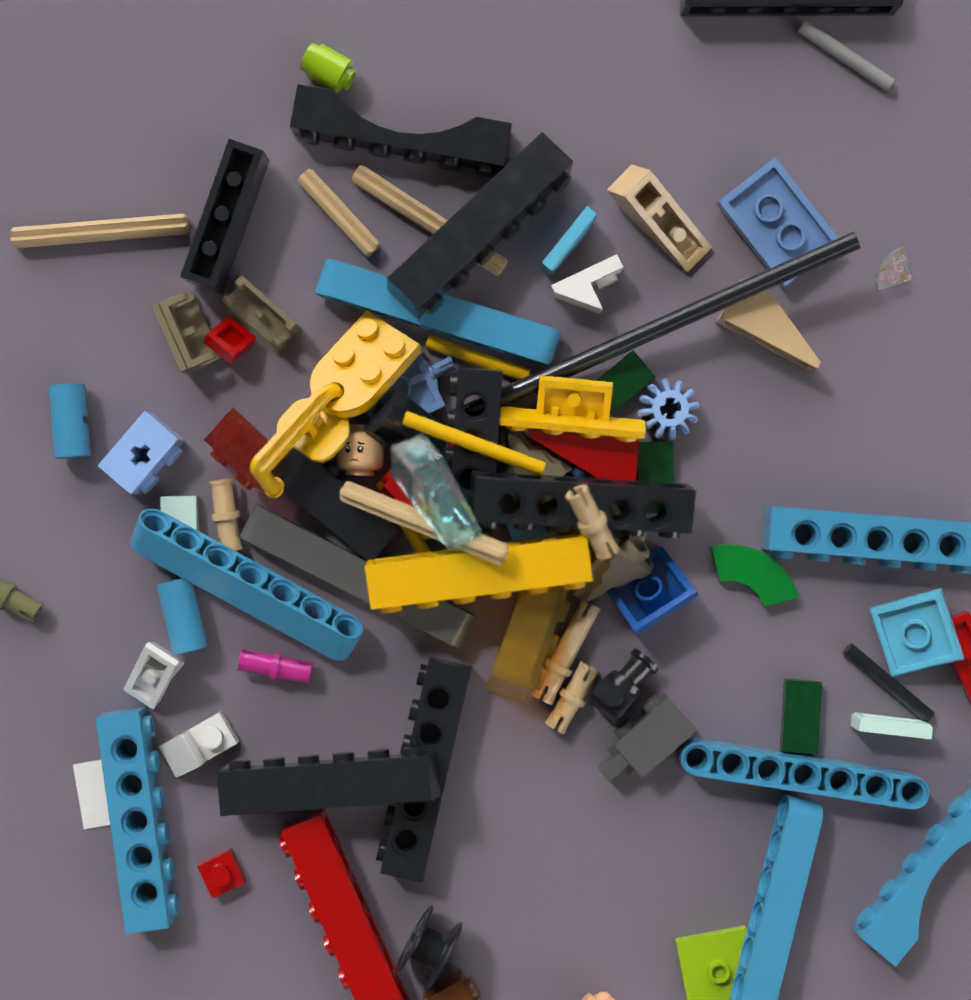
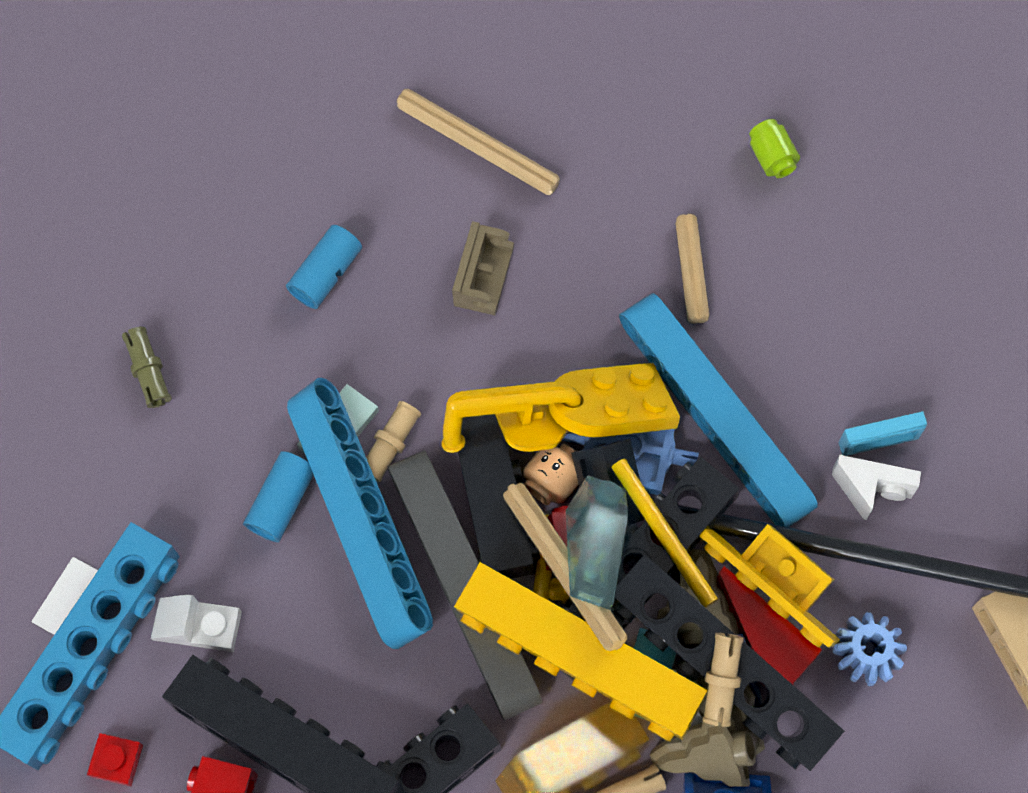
camera: 40 degrees right, 20 degrees down
(123, 460) = (343, 328): light blue brick -> none
(152, 674) = (211, 525): white slope -> none
(225, 216) = (591, 199): black brick -> none
(229, 340) = (514, 300): red plate -> none
(237, 443) = (444, 379): clear red bracket -> none
(260, 315) = (558, 300): dark tan hinge -> none
(275, 666) = (322, 605): dark pink pin -> none
(412, 209) = (768, 331): tan axle -> none
(475, 144) = (854, 293): black arch -> none
(475, 357) = (699, 444): yellow bar -> none
(479, 226) = (811, 359): black brick -> none
(628, 379) = (848, 596): dark green tile -> none
(655, 464) = (822, 687): dark green tile -> none
(659, 216) = (985, 473): tan slope -> none

